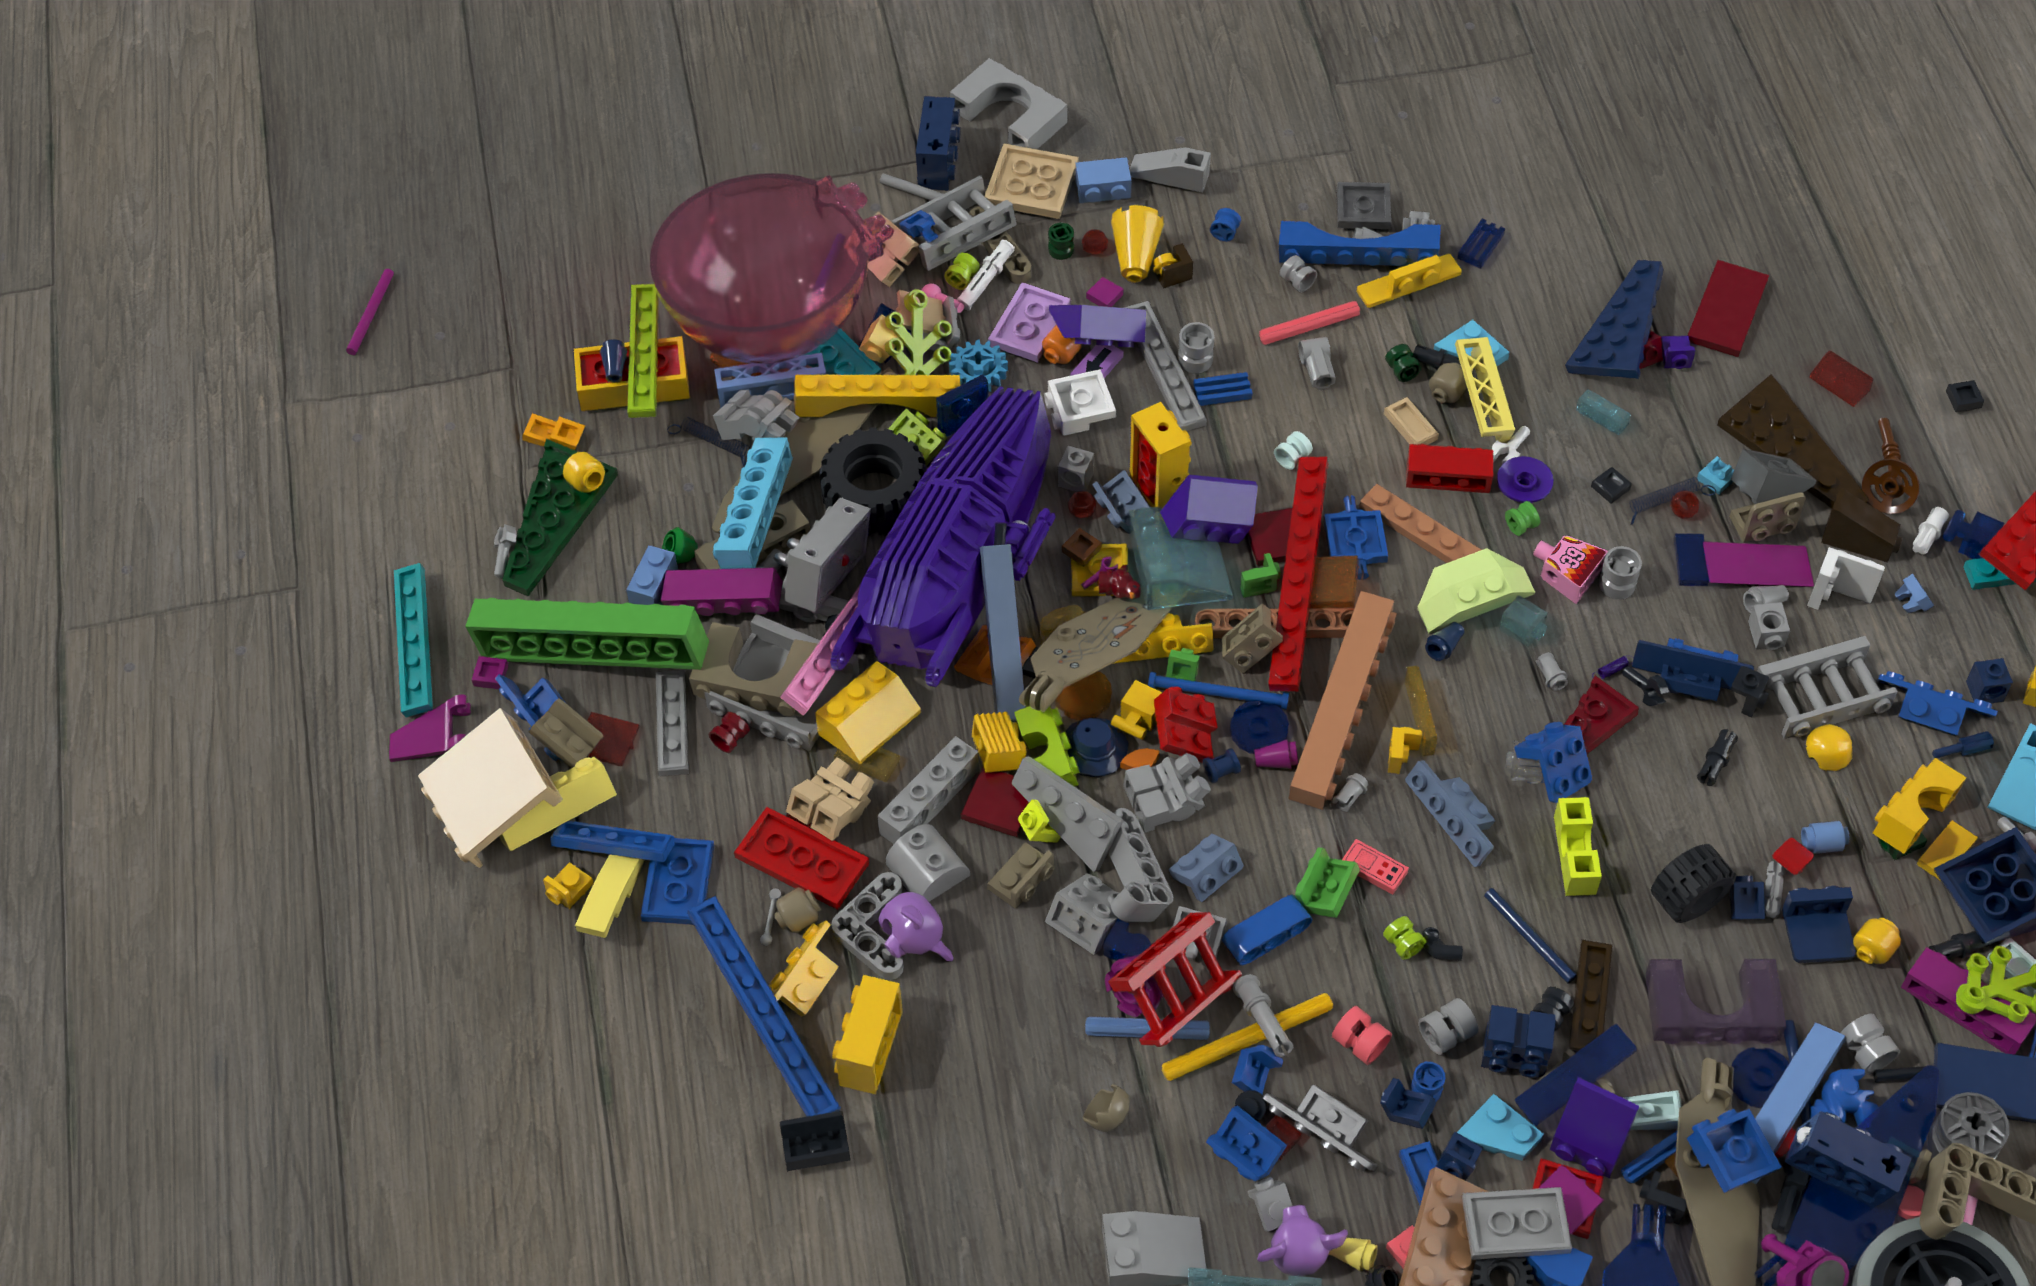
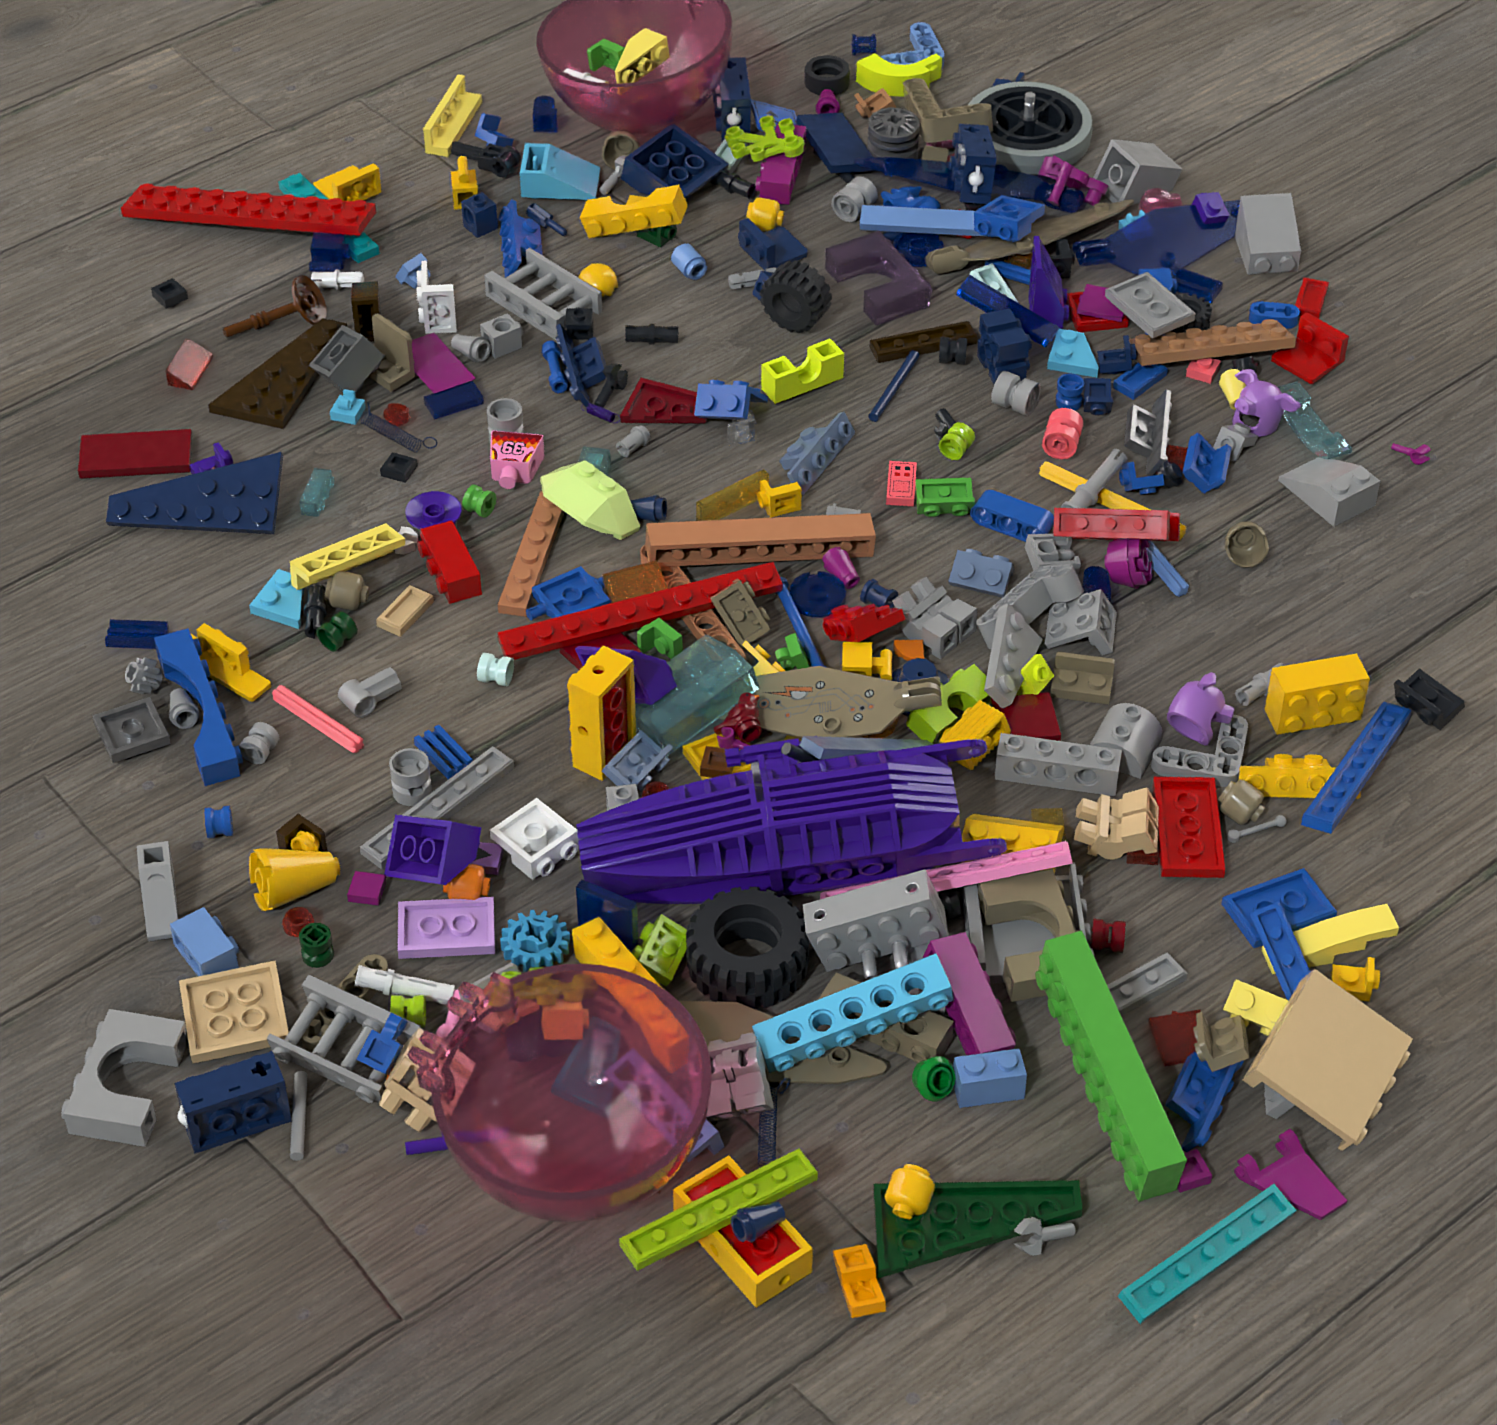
camera: 120 degrees left, 10 degrees down
(926, 1020) = (1255, 688): none -> light grey pin
(1793, 856) = (720, 271): red slope -> none

